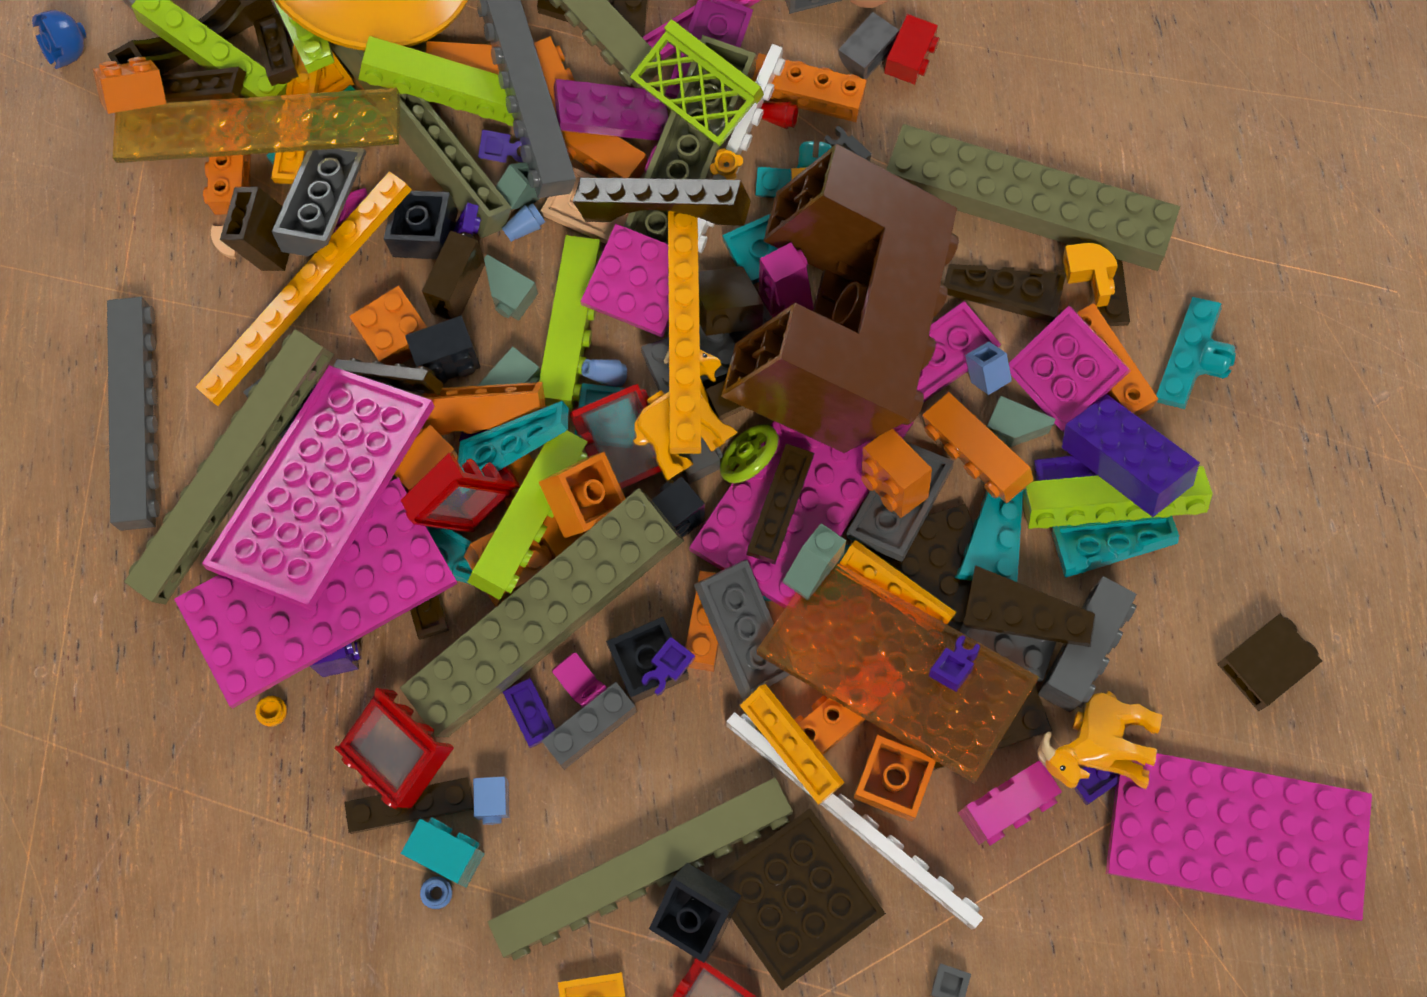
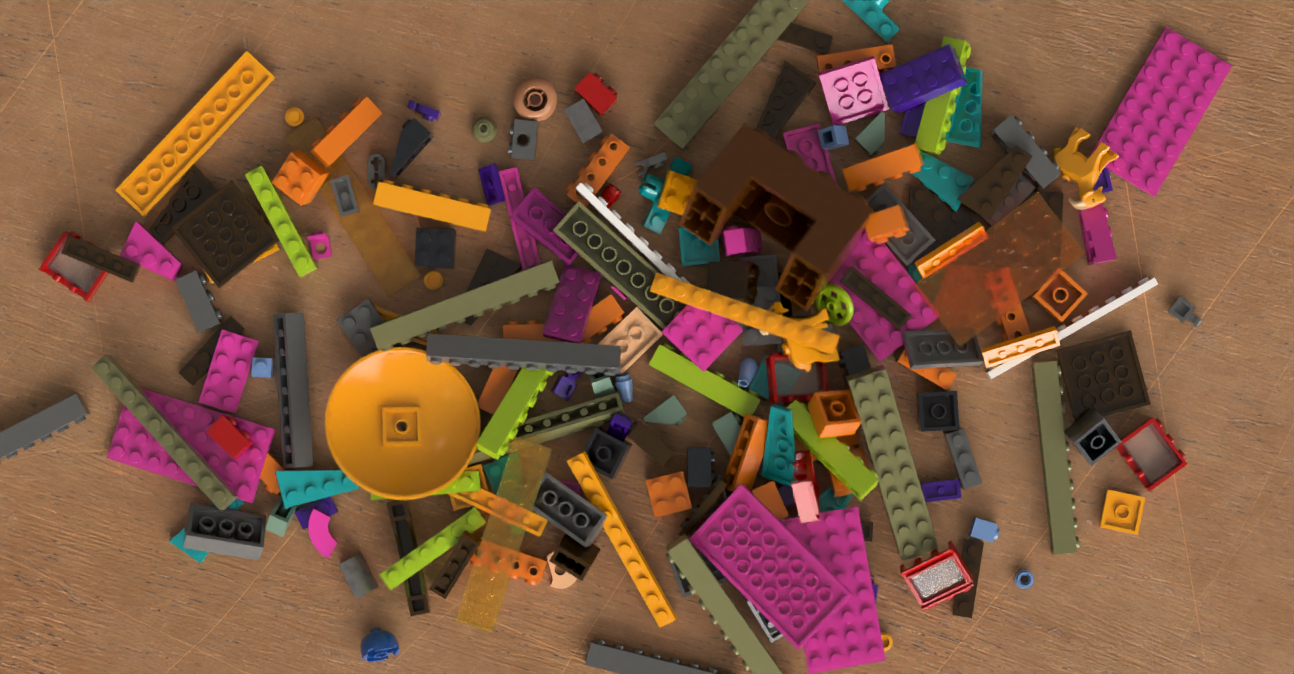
camera: 75 degrees left, 15 degrees up
(129, 85) = (446, 607): orange brick -> none
(275, 50) = (447, 506): dark brown plate -> none
(443, 853) = (1006, 566): teal brick -> none
(578, 680) = (933, 455): dark pink bracket -> none
(670, 662) = (949, 399): dark purple plate -> none
(708, 199) = (666, 285): dark brown arch -> none
(712, 63) = (581, 231): lime fence -> none
(726, 156) = (651, 248): light orange plate -> none
(815, 561) = (920, 292): sand green slope -> none
(954, 667) = (1015, 238): dark purple plate -> none
(1094, 264) = (790, 44): light orange brick -> none
(1270, 662) = (1071, 49): dark brown brick -> none

